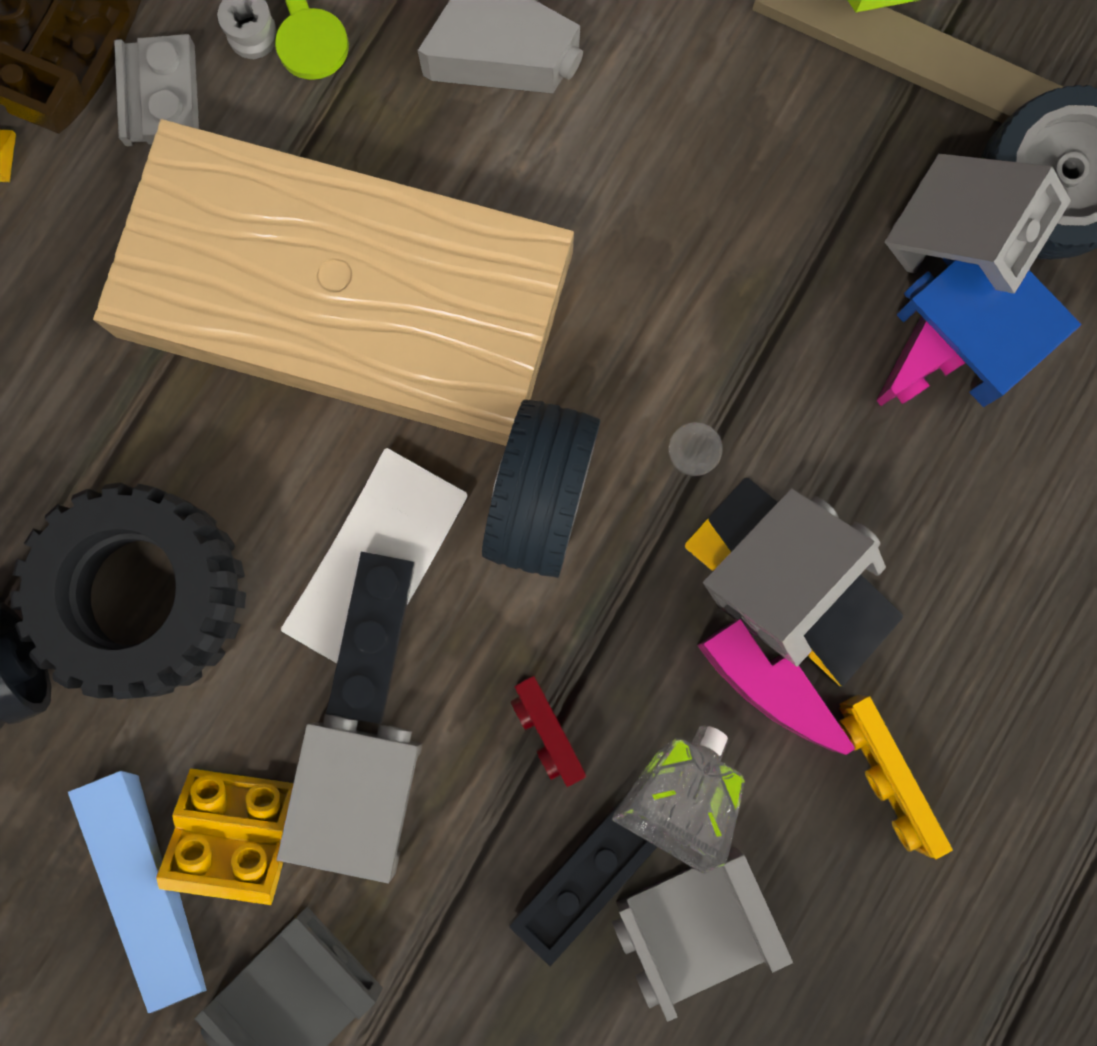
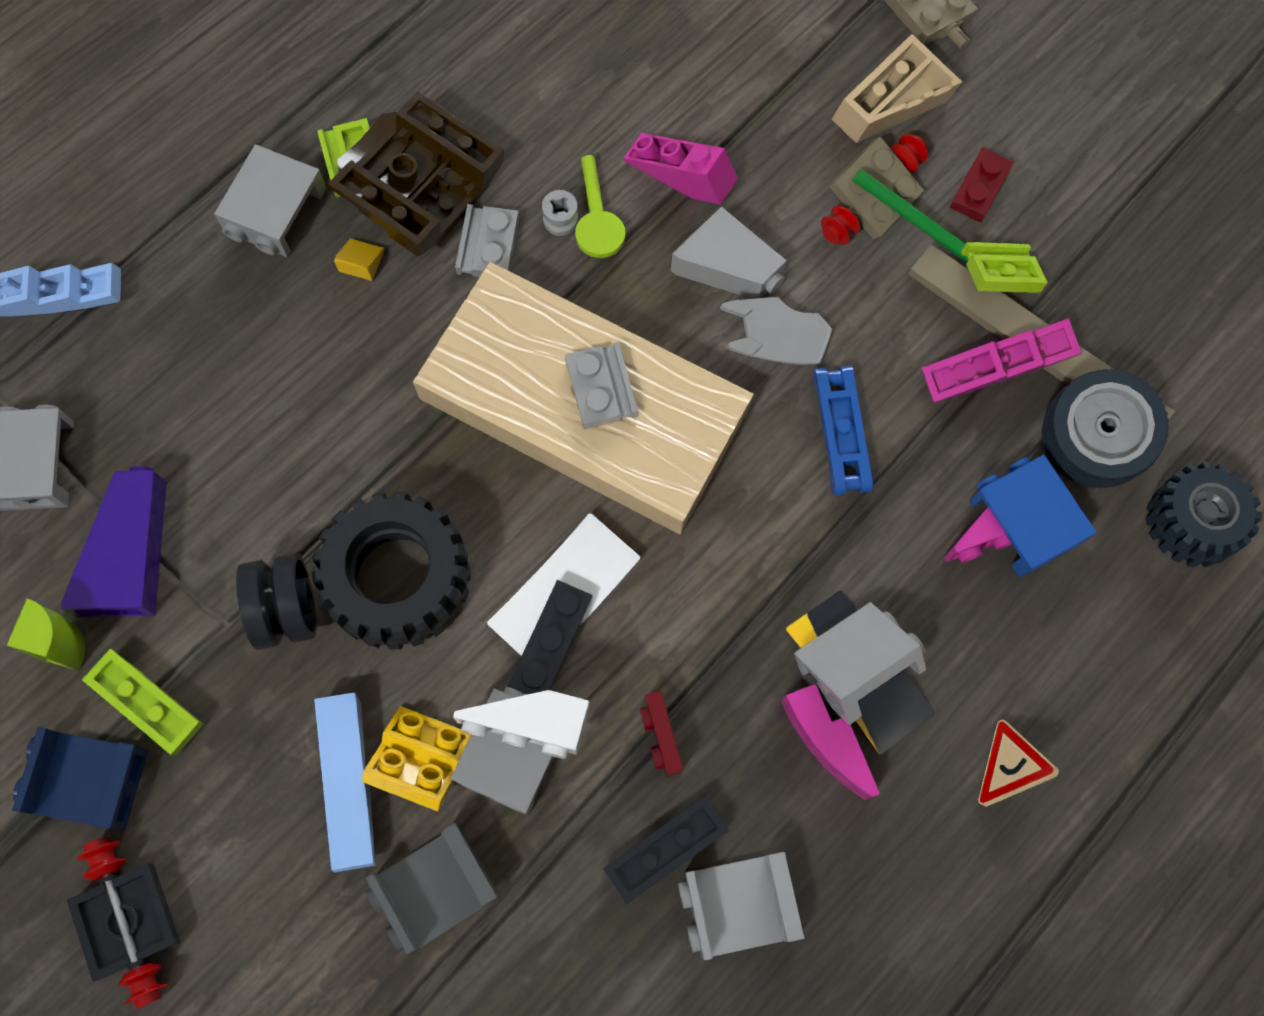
camera: 10 degrees right, 10 degrees down
(358, 267) = (601, 385): none -> light grey plate
(382, 757) = (537, 718): none -> white slope
(539, 487) = (693, 560): black wheel -> none
(590, 132) = (779, 332): none -> light grey shield
(687, 801) = (750, 806): clear torso -> none
(695, 449) = (807, 562): clear plate -> none
(706, 252) = (843, 430): none -> blue plate
(892, 778) = (903, 825): yellow tile -> none
(906, 106) = (1001, 361): none -> dark pink slope
(981, 216) = (1039, 442): light grey panel -> none
(1022, 666) = (1012, 766): none -> piece

